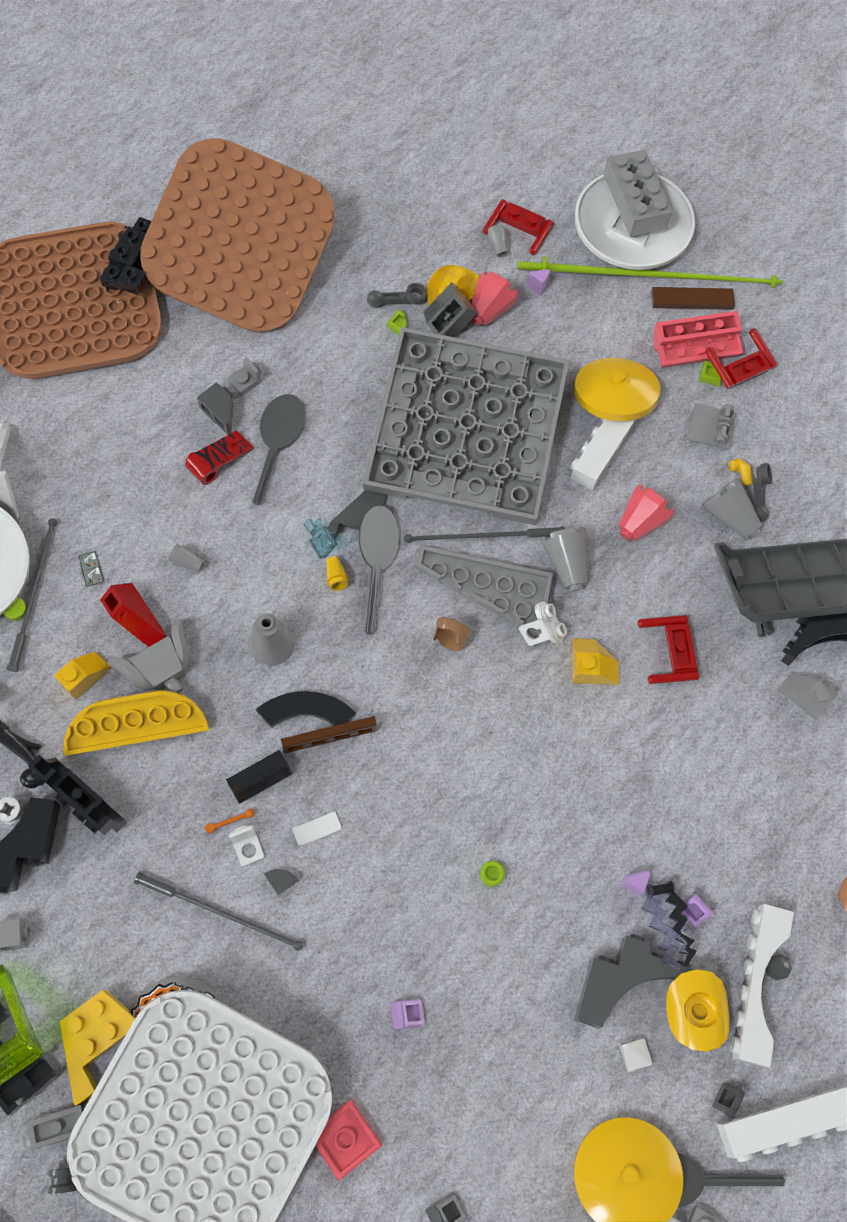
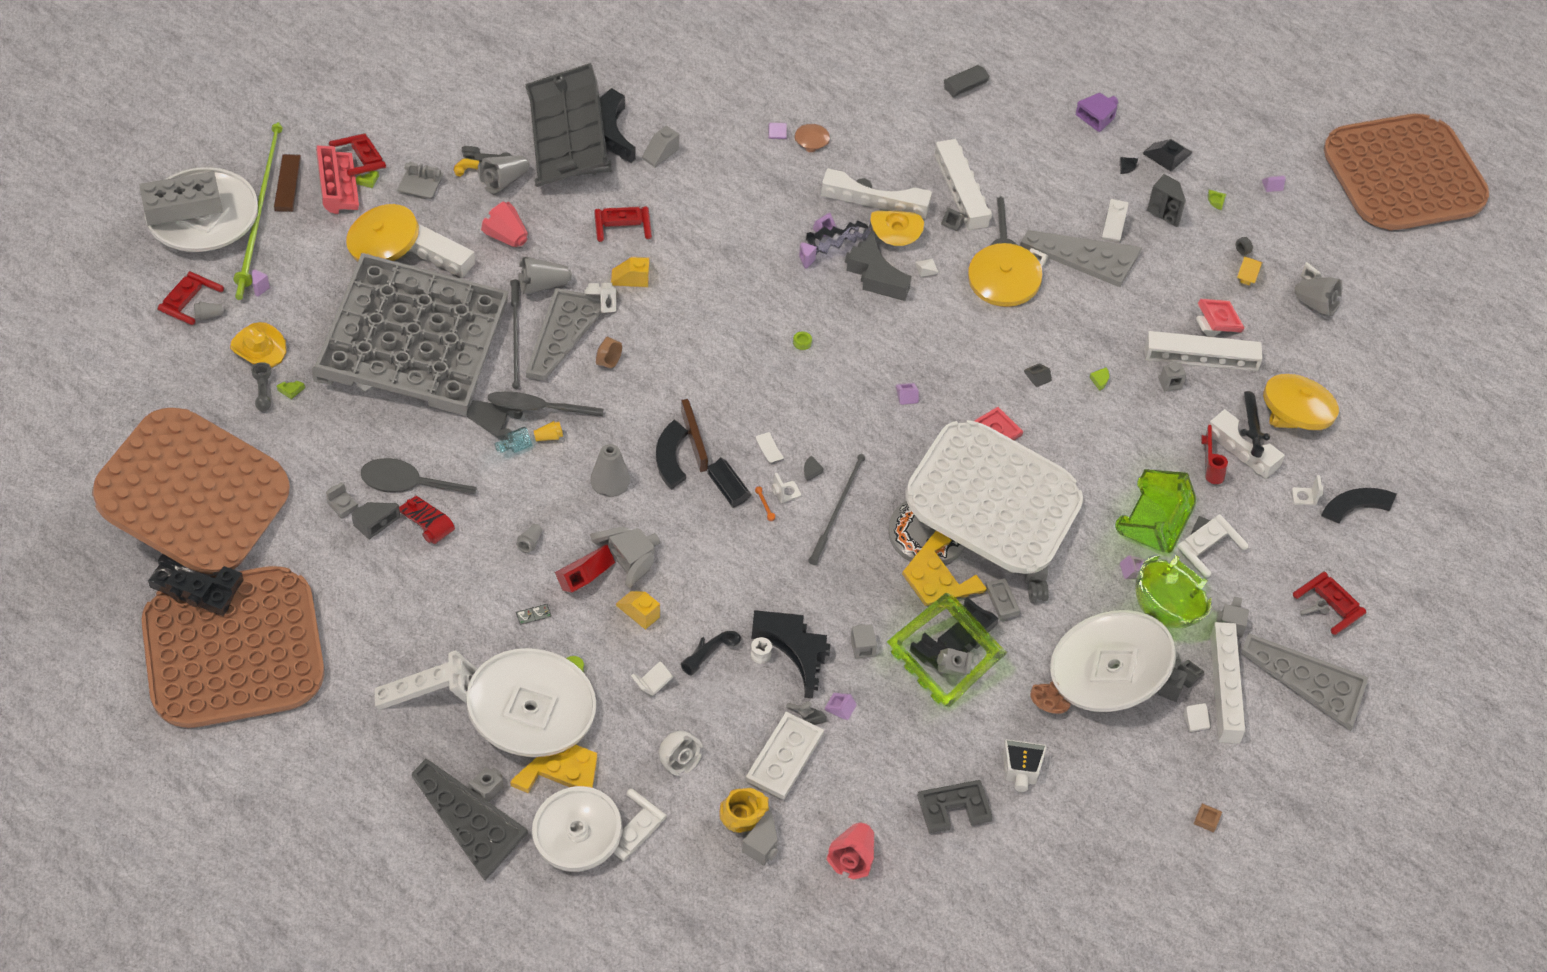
camera: 90 degrees left, 15 degrees down
(21, 637) = (628, 662): dark grey piece -> none
(80, 796) = (751, 593): black bracket -> none
(133, 720) = (683, 566): yellow plate -> none
(449, 312) = (291, 342): dark grey slope -> none
(492, 298) = (278, 312): coral cone -> none

